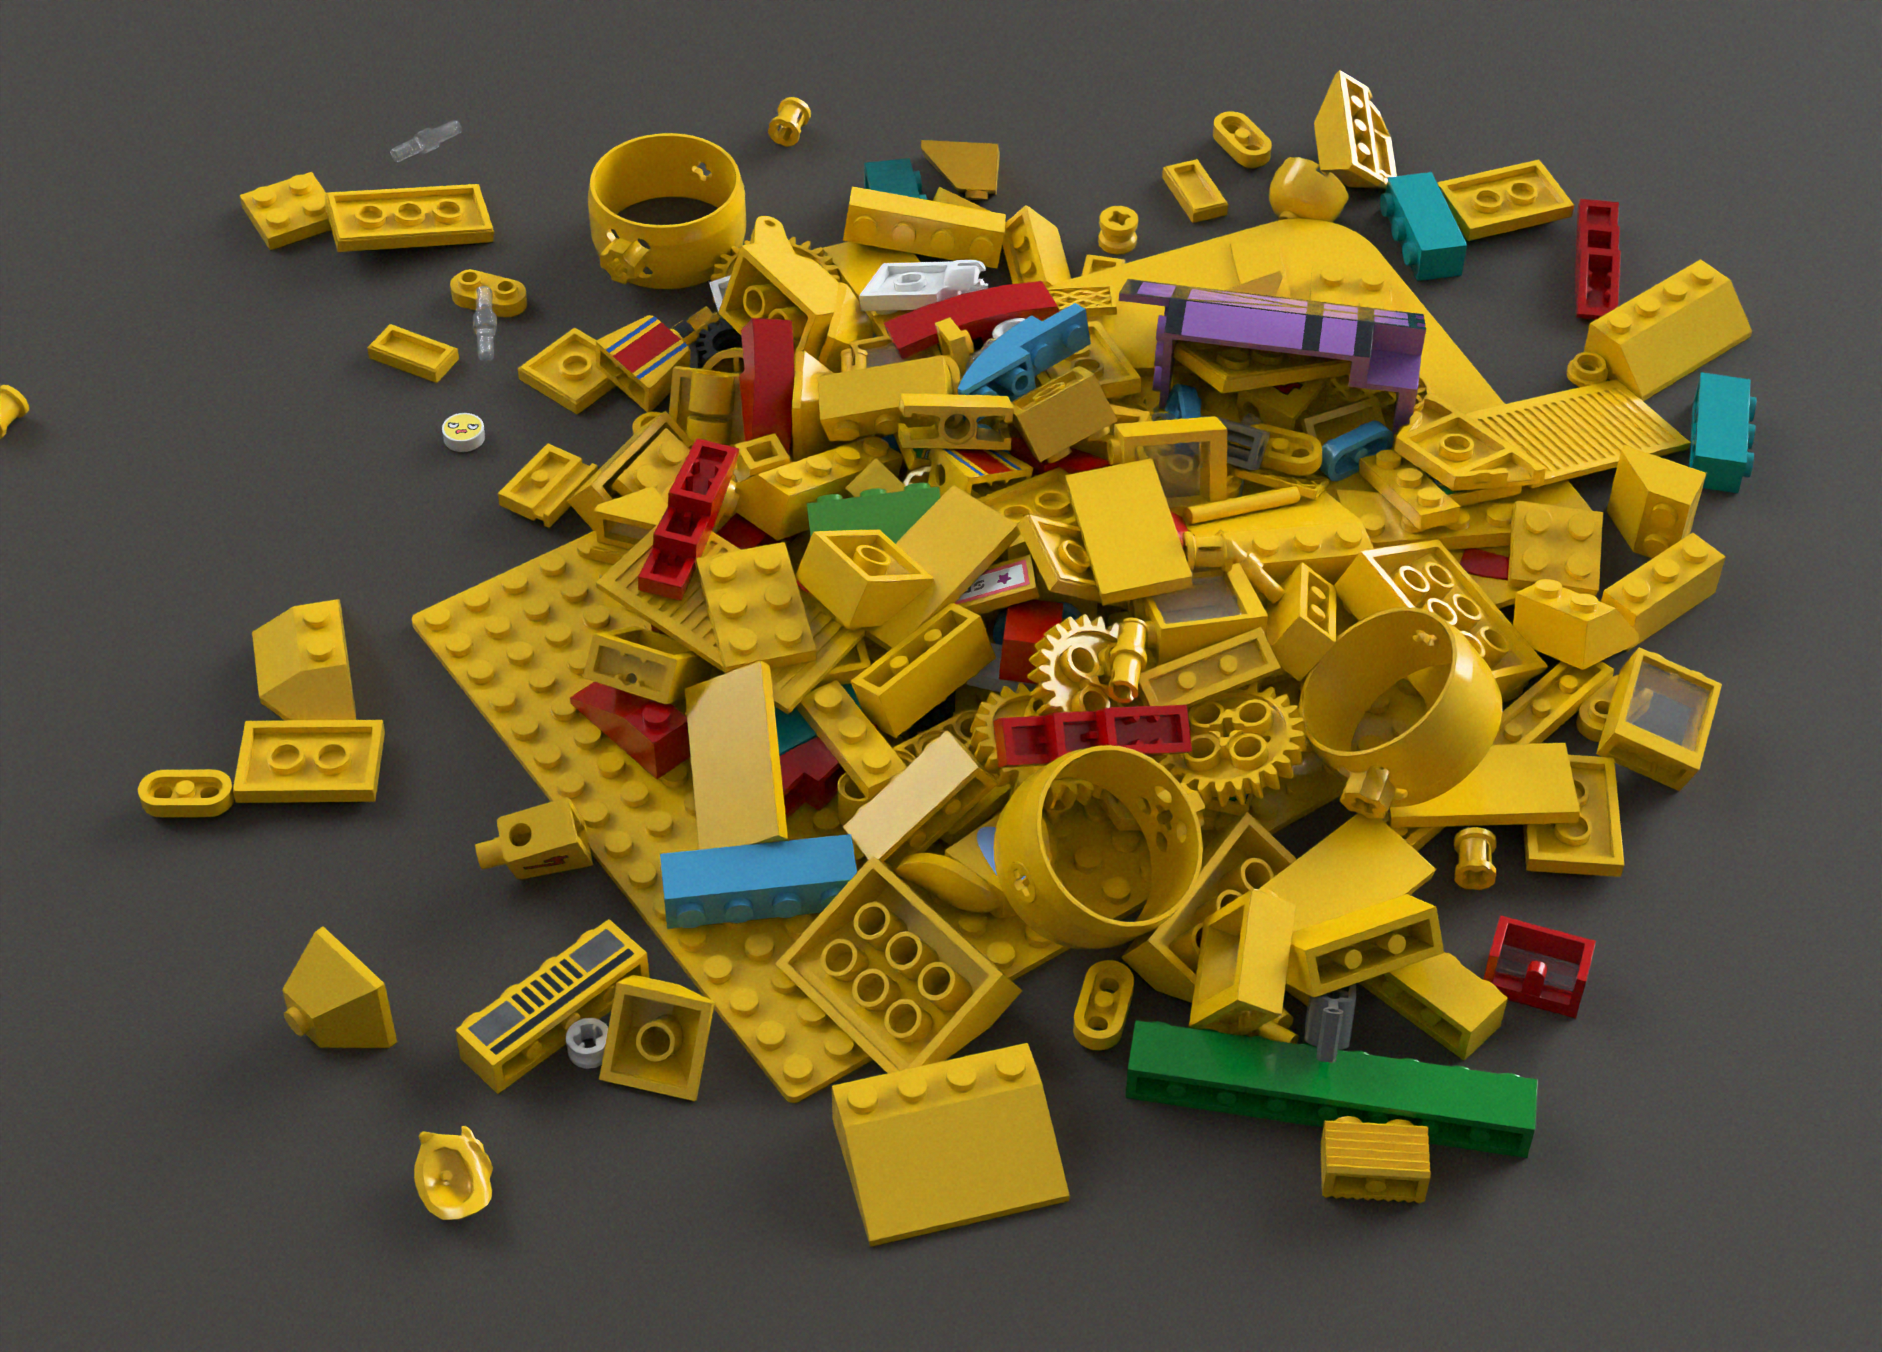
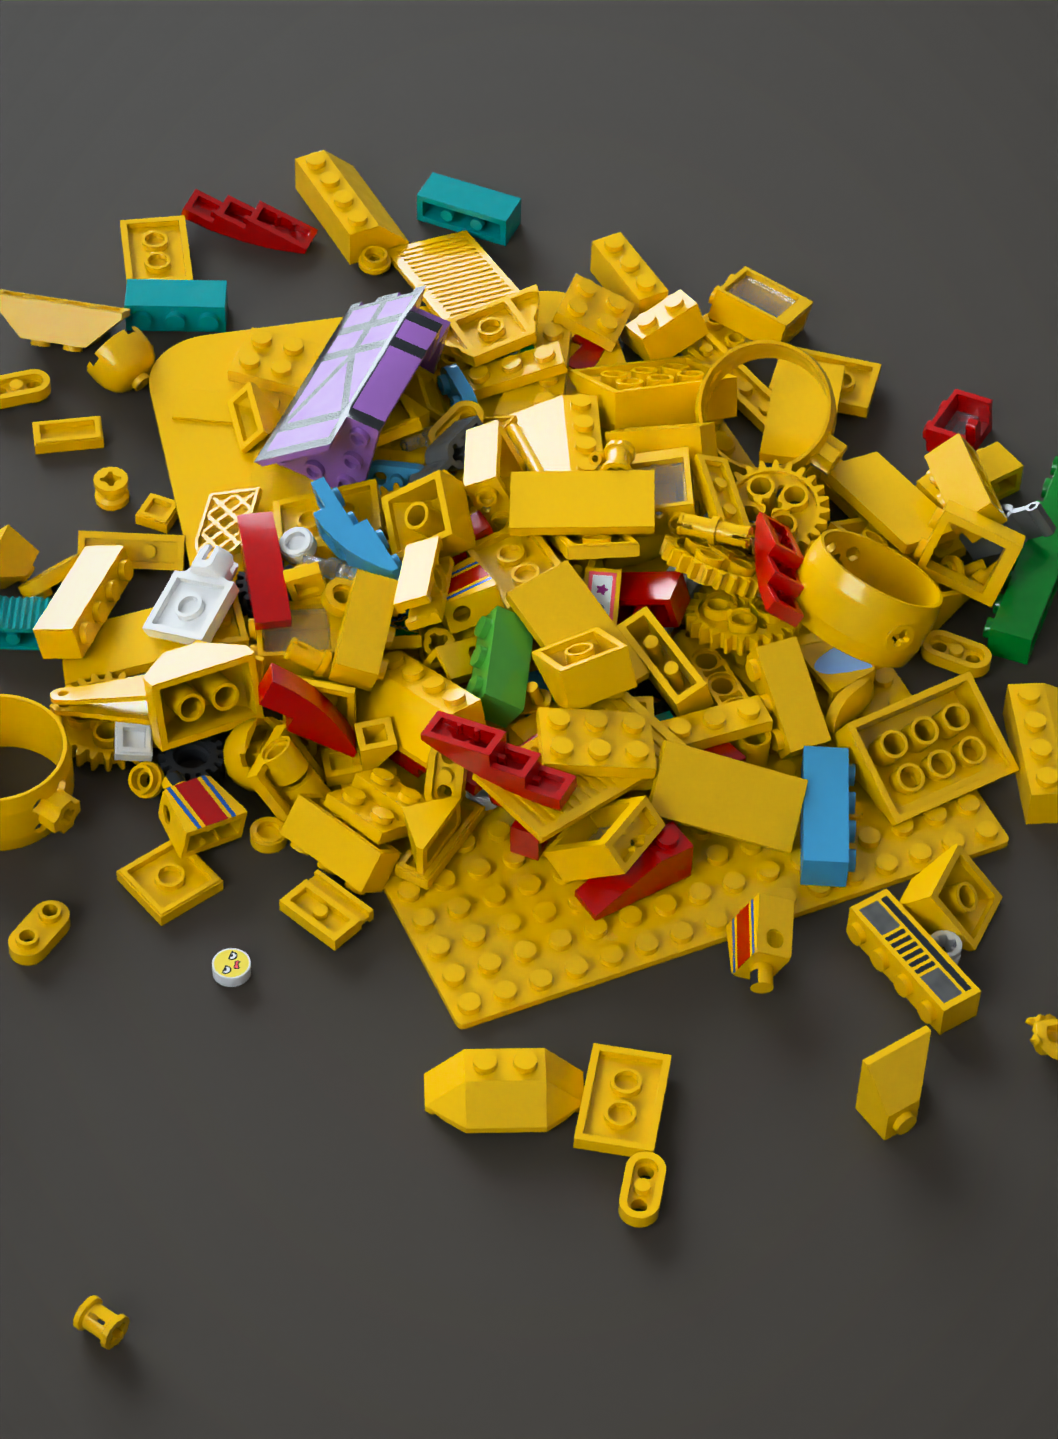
camera: 80 degrees left, 0 degrees up
(413, 353) = (106, 997): yellow tile -> none
(484, 323) = (91, 934): clear bar -> none
(1475, 858) = (858, 436): yellow bush -> none
(1653, 500) = (553, 253): yellow slope -> none

